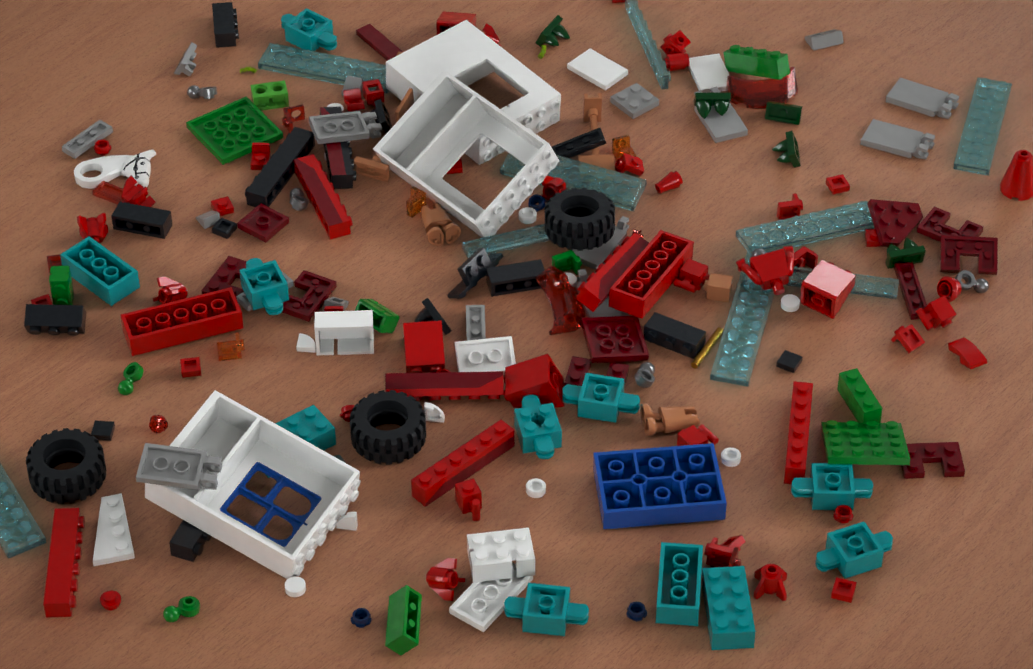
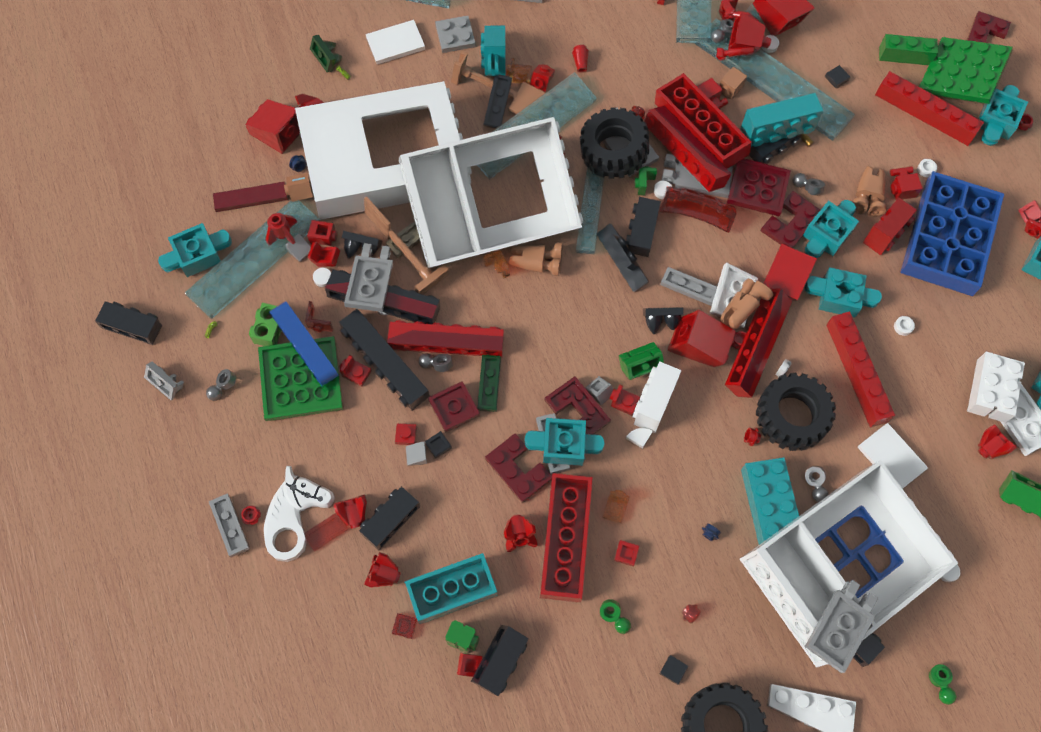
camera: 65 degrees left, 25 degrees up
(260, 112) = (304, 343): none -> blue beam
(299, 238) = (489, 383): none -> dark green tile
(357, 62) = (279, 227): none -> red brick
(361, 617) = (1012, 527): dark blue plate -> none
(388, 516) = (894, 453): none -> white tile
(469, 498) = (904, 382): red brick -> none
(473, 355) = (745, 303): none -> nougat piece
(624, 118) = (493, 50): none -> teal brick
(628, 435) = (890, 226): none -> red wedge
(683, 313) = (782, 119): none -> teal brick

